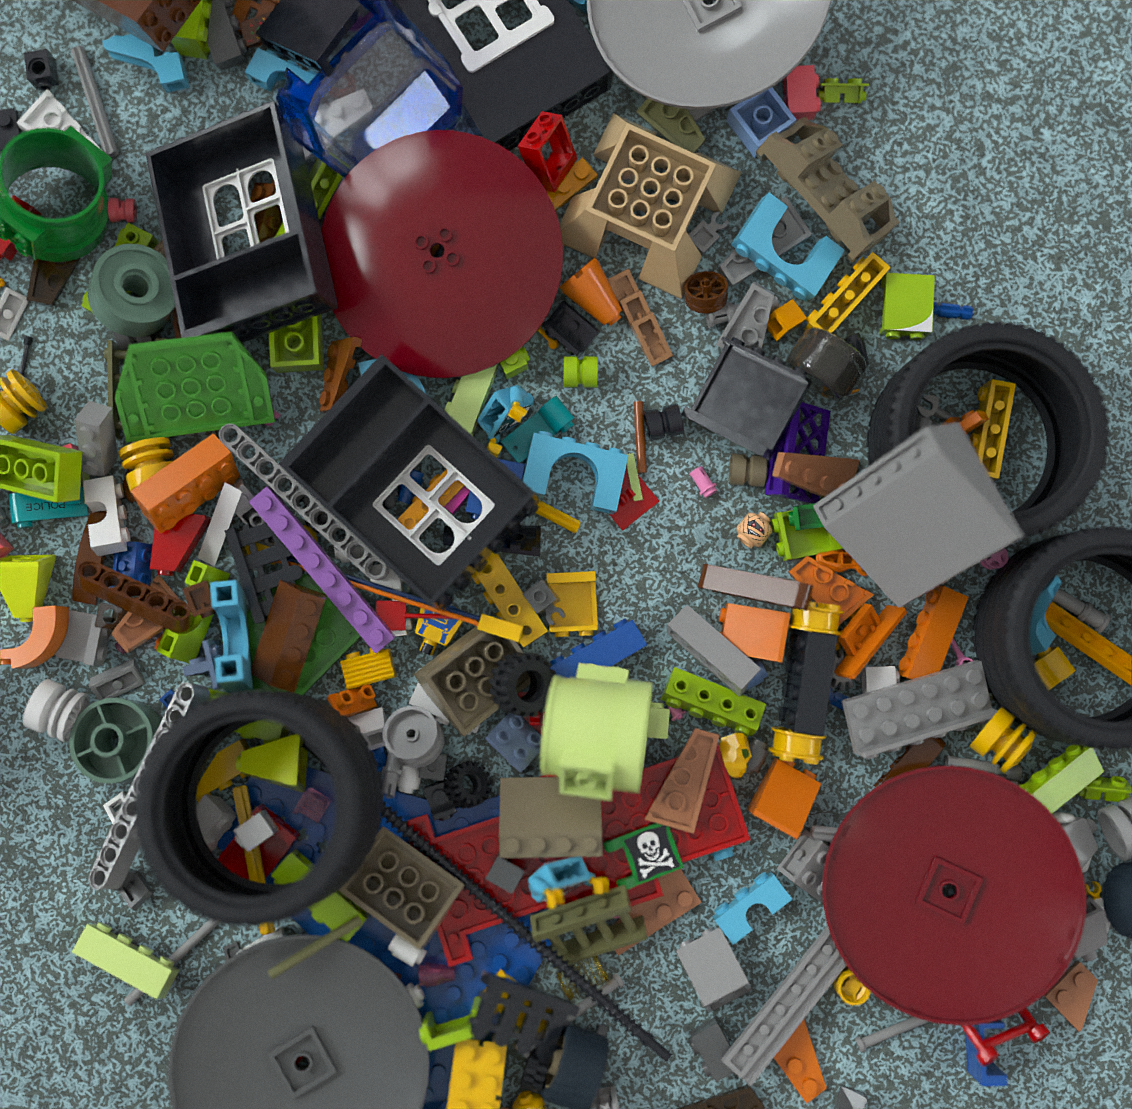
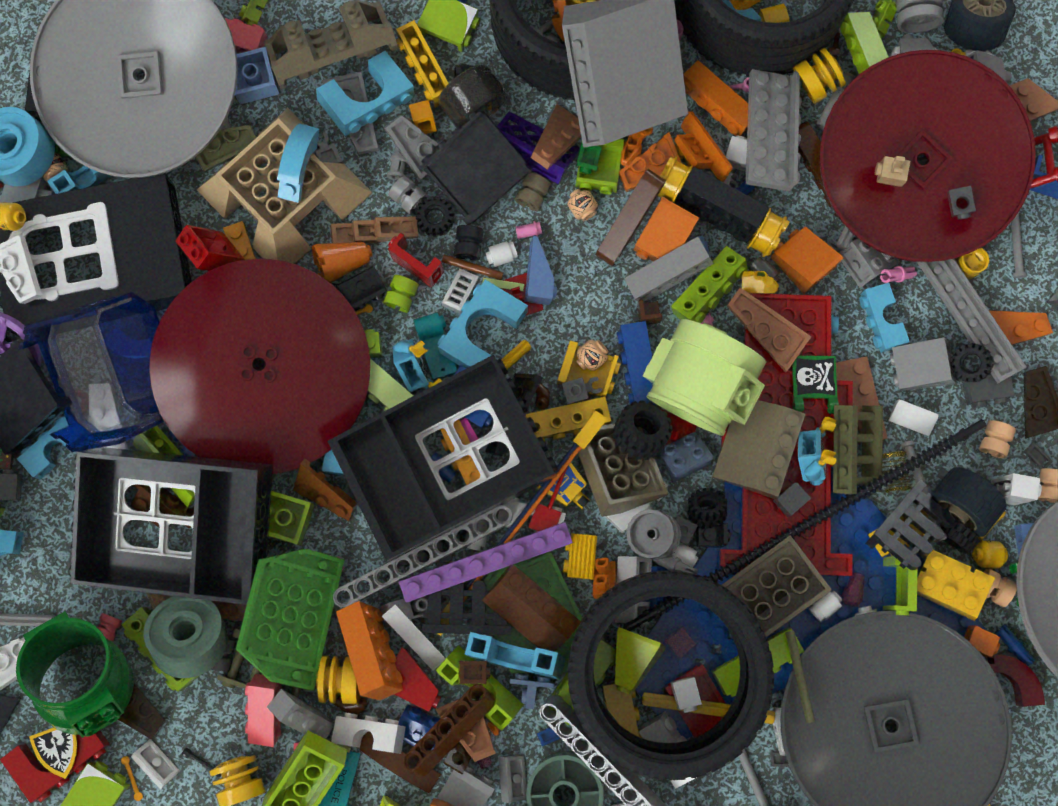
camera: 70 degrees left, 5 degrees down
(98, 389) = (262, 725): none -> coral brick
(525, 565) = (542, 397): none -> reddish brown arm
(588, 601) = (592, 355): none -> light nougat head
(590, 423) = (450, 293): none -> white slope
(611, 395) = (427, 274): none -> red panel
(651, 976) = (913, 417): none -> white slope
(653, 513) = (539, 280): none -> medium blue slope
(660, 645) = (649, 312): none -> reddish brown panel
(661, 1078) = (998, 436): none -> light nougat wheel
(665, 462) = (501, 253): none -> white brick
(673, 198) = (294, 160): none -> medium azure arch
(687, 363) = (435, 204): none -> black tyre
(693, 329) = (401, 194): none -> light grey wheel
(705, 298) = (379, 170): reddish brown wheel -> none
(717, 1023) = (958, 362): none -> black tyre
(806, 906) = (898, 274): none -> bright pink axle
(918, 860) = (892, 171): none -> tan brick
(920, 943) = (965, 193): none -> dark grey brick
(1042, 747) = (835, 50): none -> reddish brown hand

